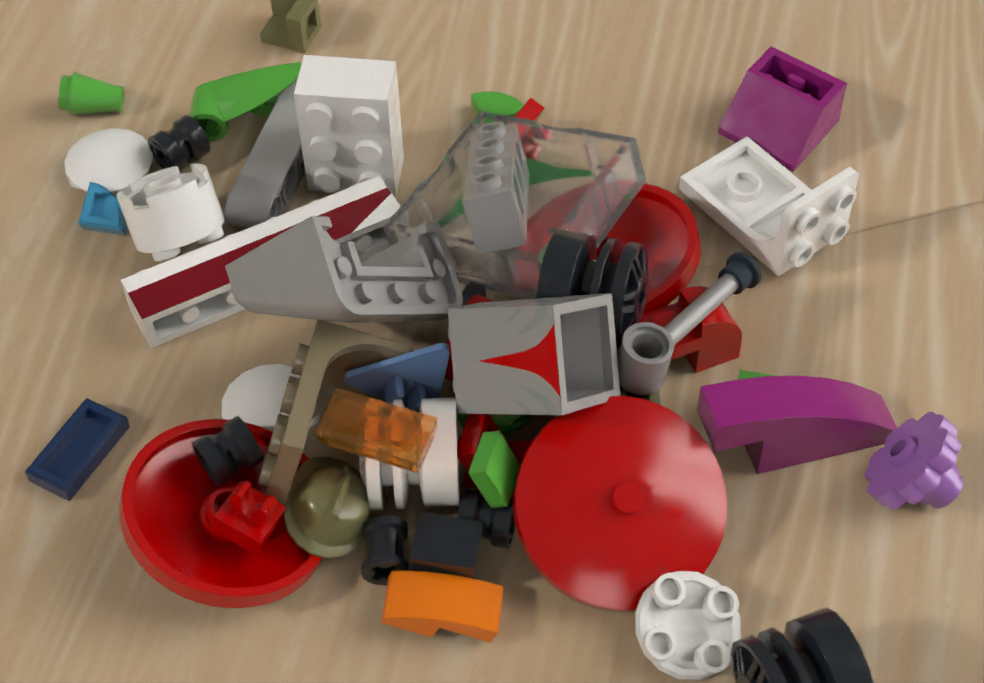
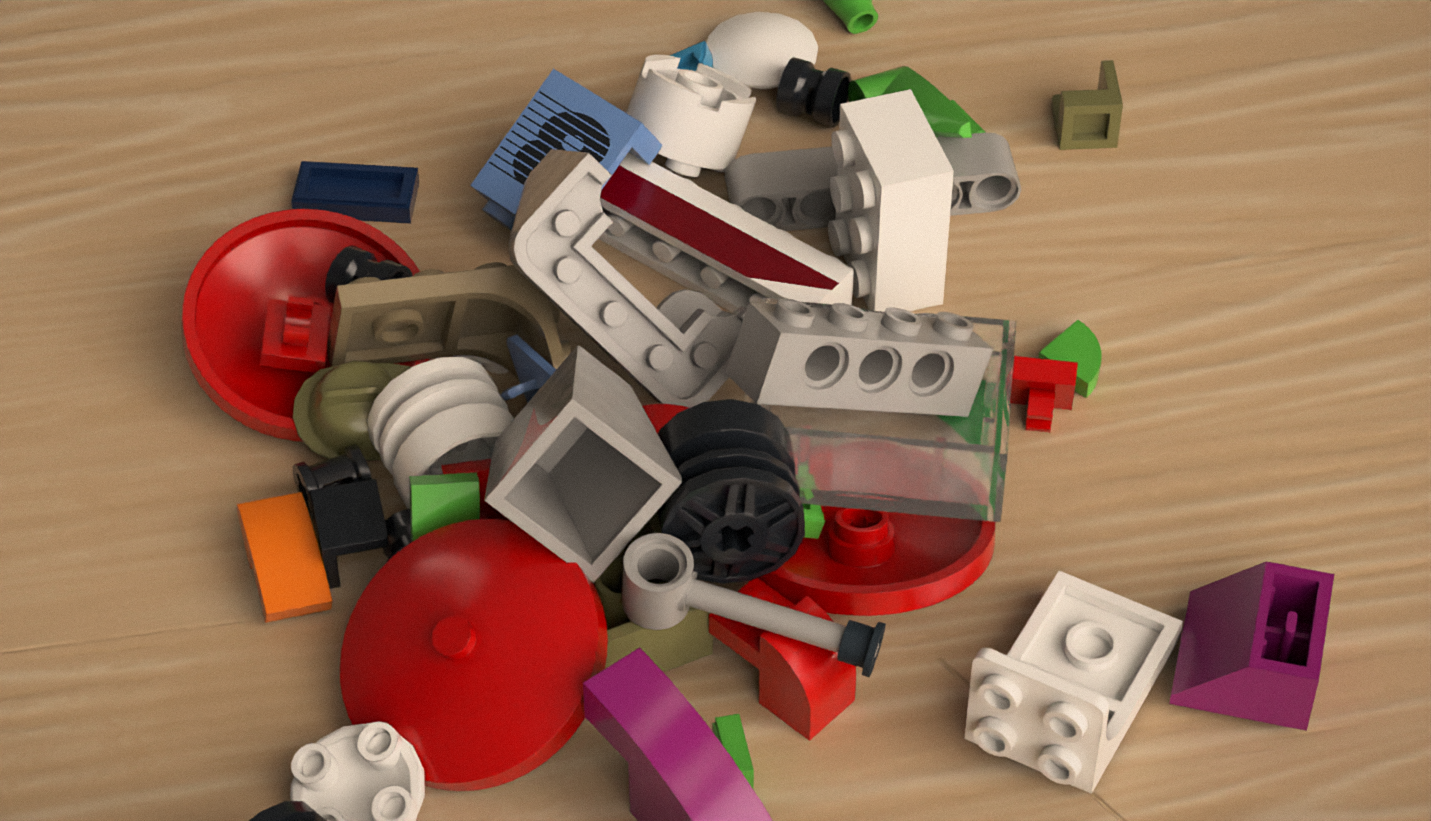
camera: 65 degrees right, 5 degrees down
(175, 296) = (559, 118): none -> medium blue panel
(377, 430) = (415, 370): clear orange plate -> none

